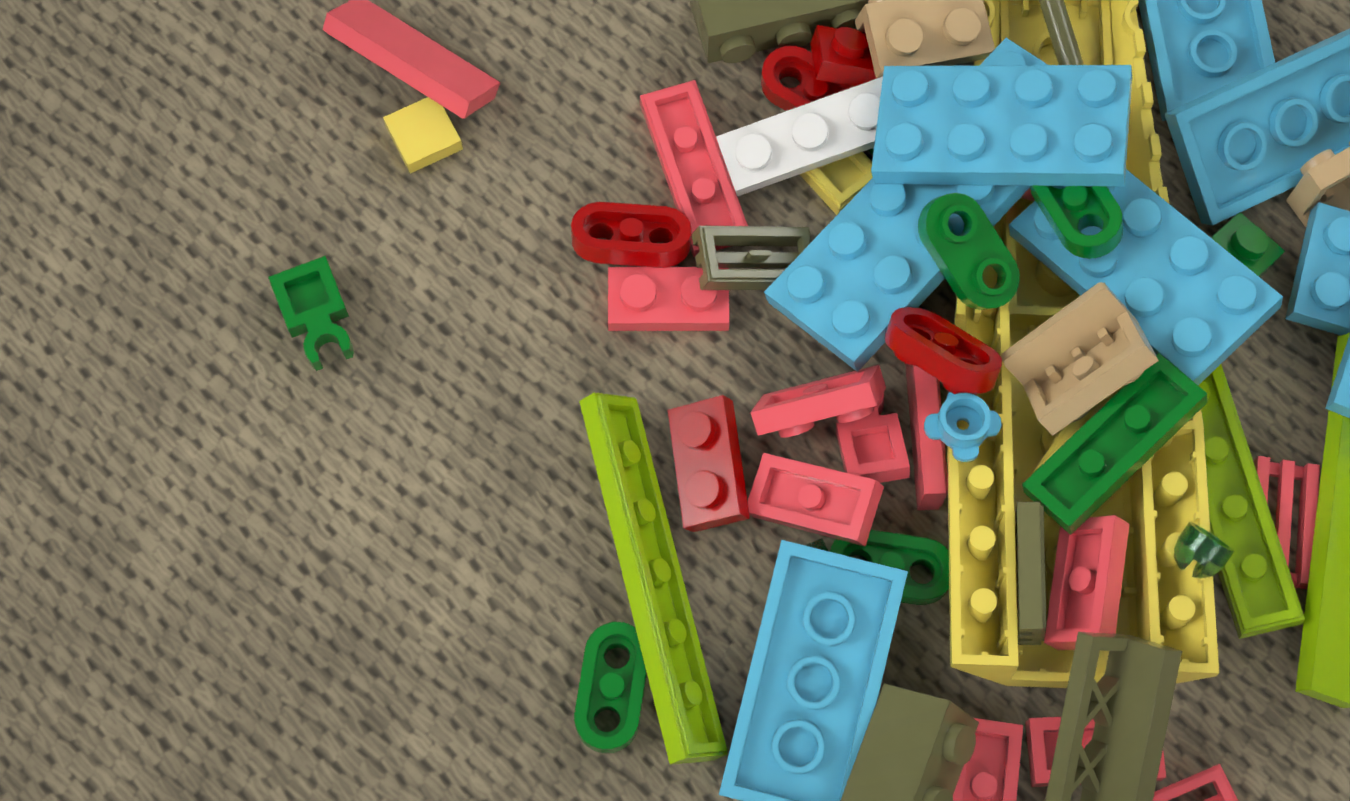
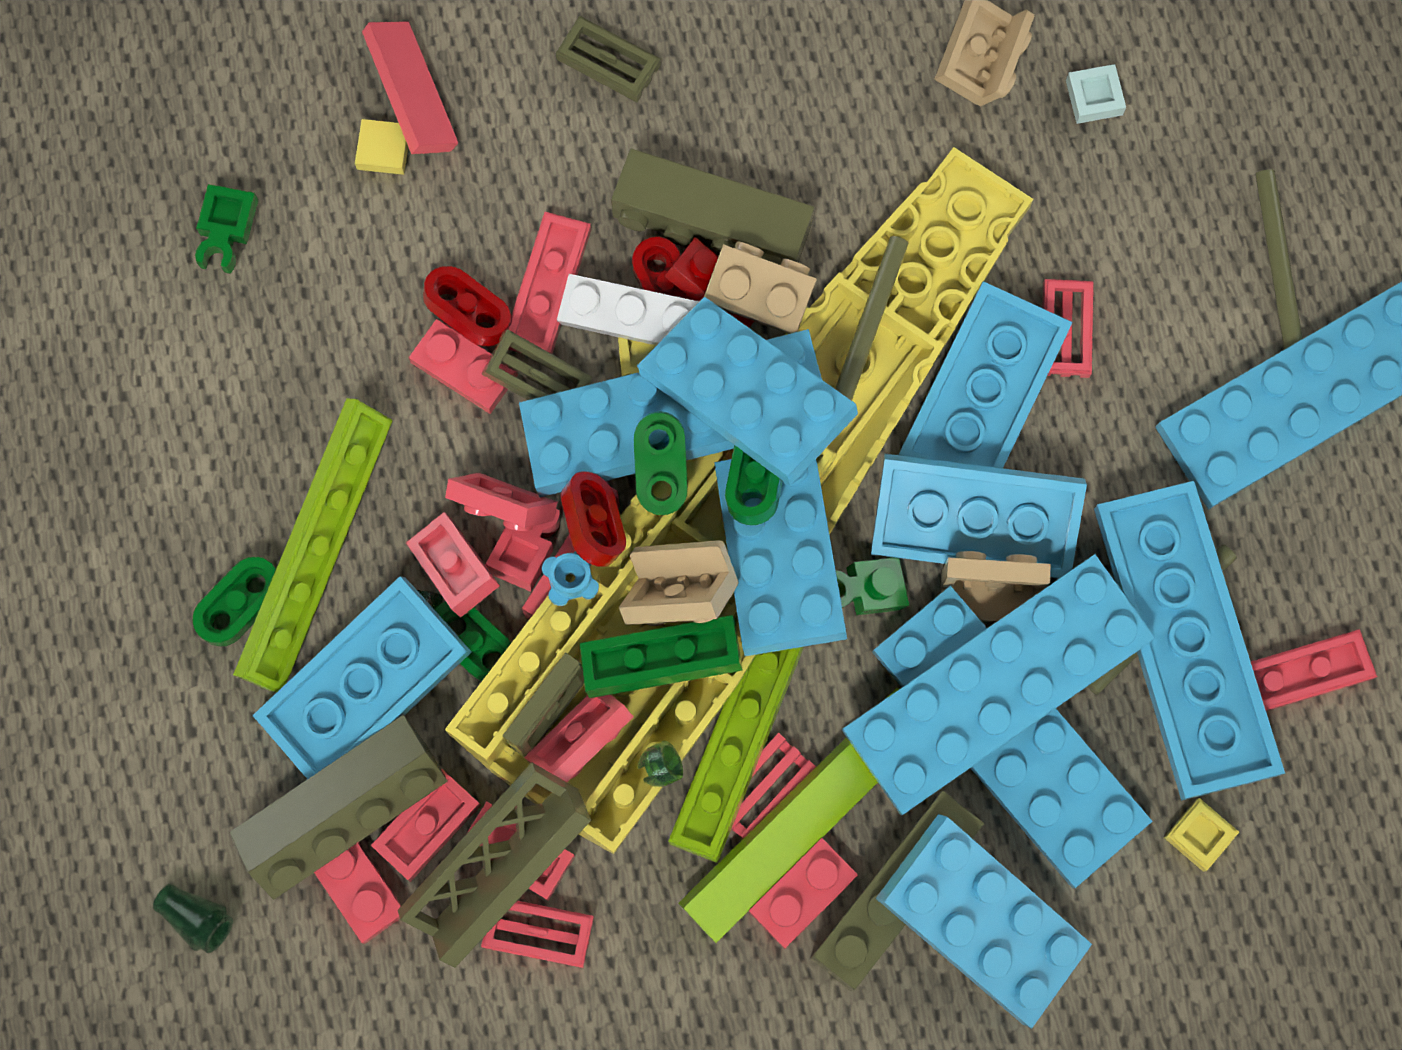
camera: 35 degrees right, 5 degrees up
(708, 464) = (405, 495): plate -> none

